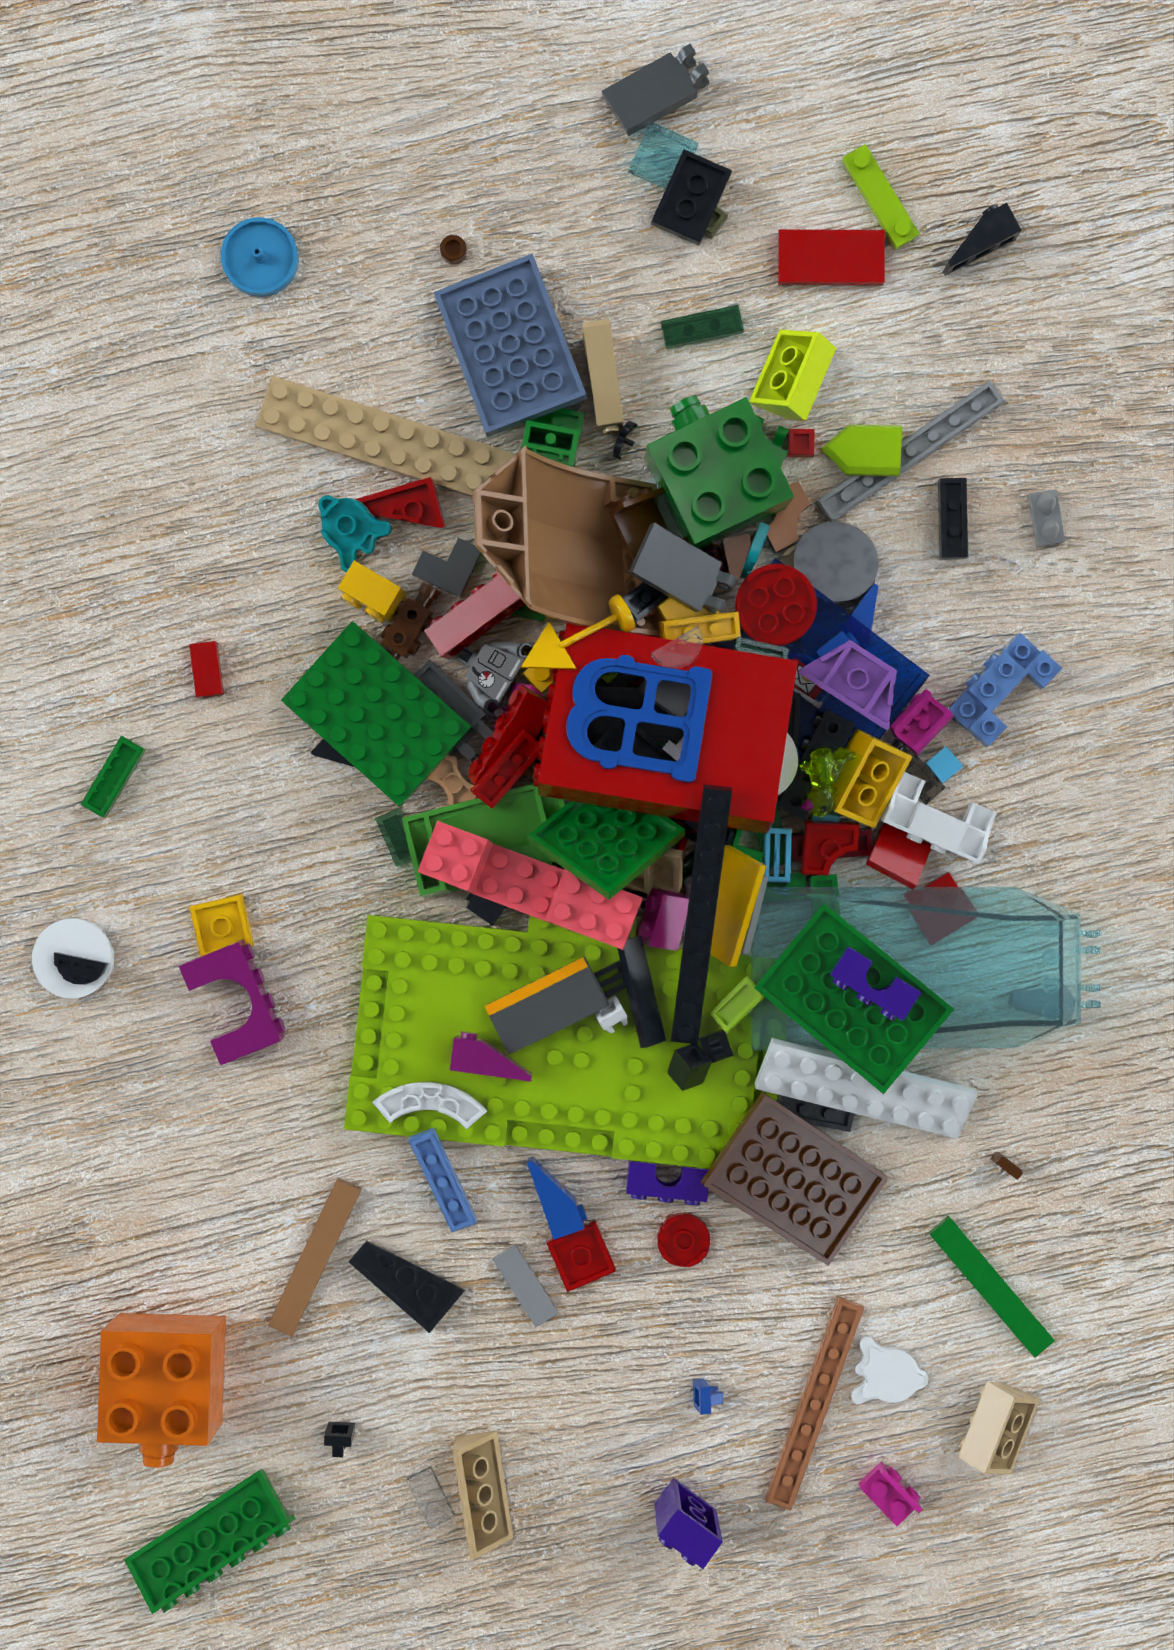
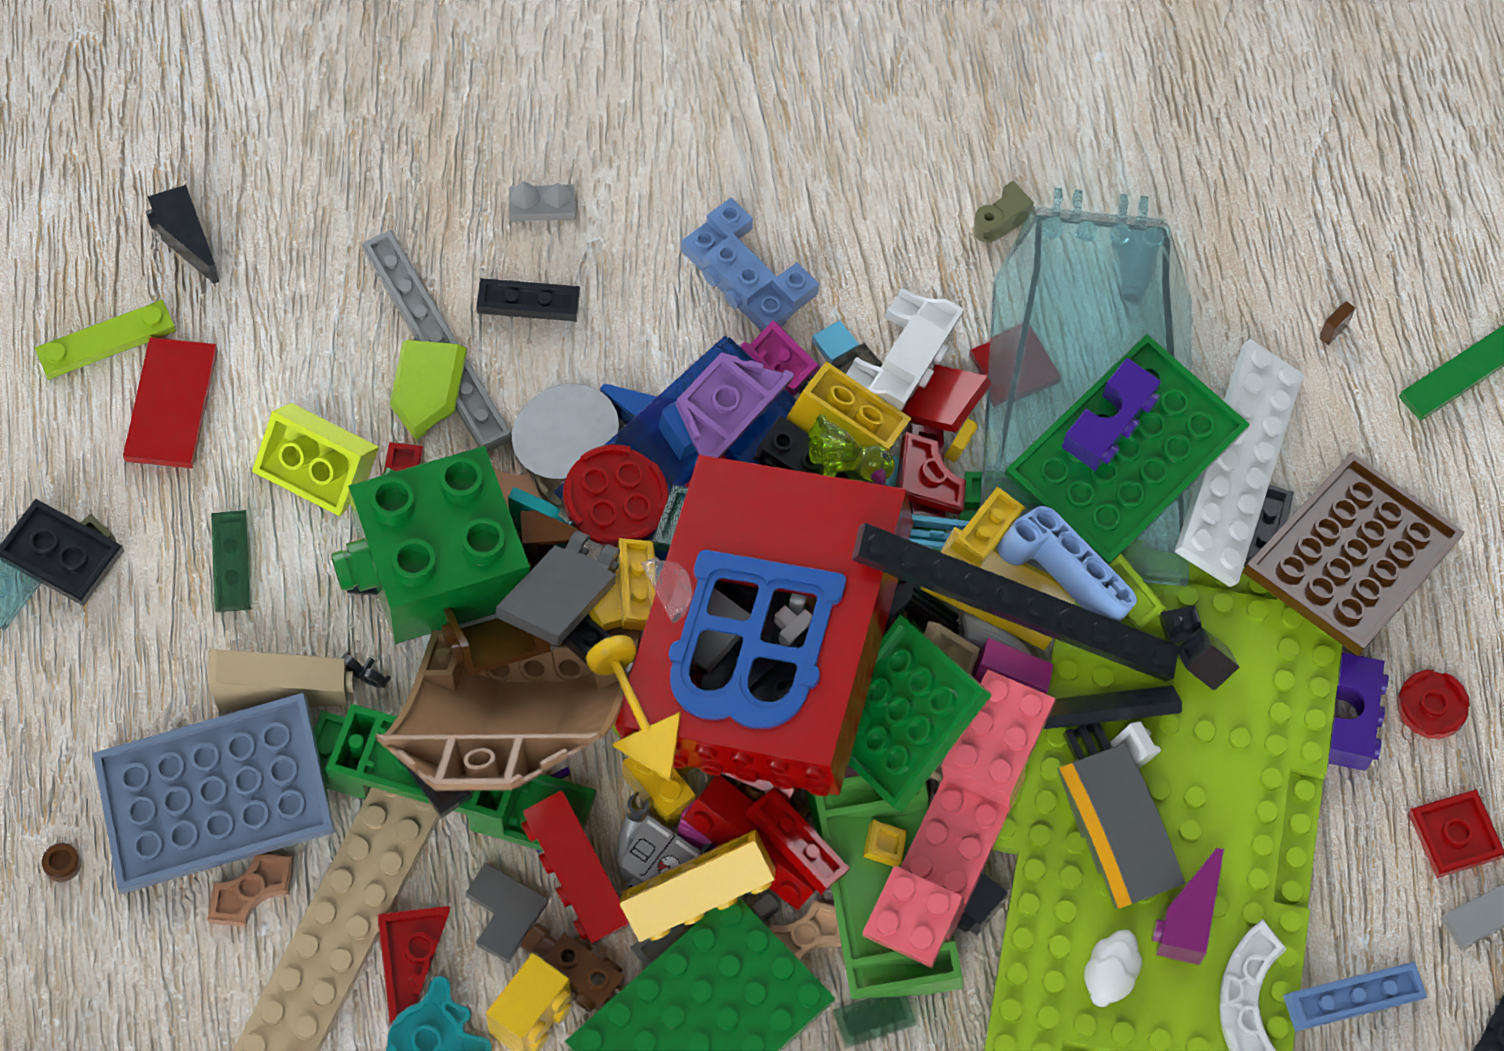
camera: 90 degrees left, 25 degrees down
(440, 1004) = (1113, 968): none -> white arm
(456, 394) = (236, 899): none -> nougat tile
(466, 700) = (698, 886): none -> yellow brick
(519, 832) = (885, 843): none -> yellow tile
(559, 1205) = (1393, 850): blue slope -> none
(724, 985) = (1069, 561): none -> light blue beam
(769, 891) = (987, 527): none -> yellow tile
(862, 869) = (961, 440): none -> yellow tile
(1070, 884) = (1004, 215): none -> olive leg

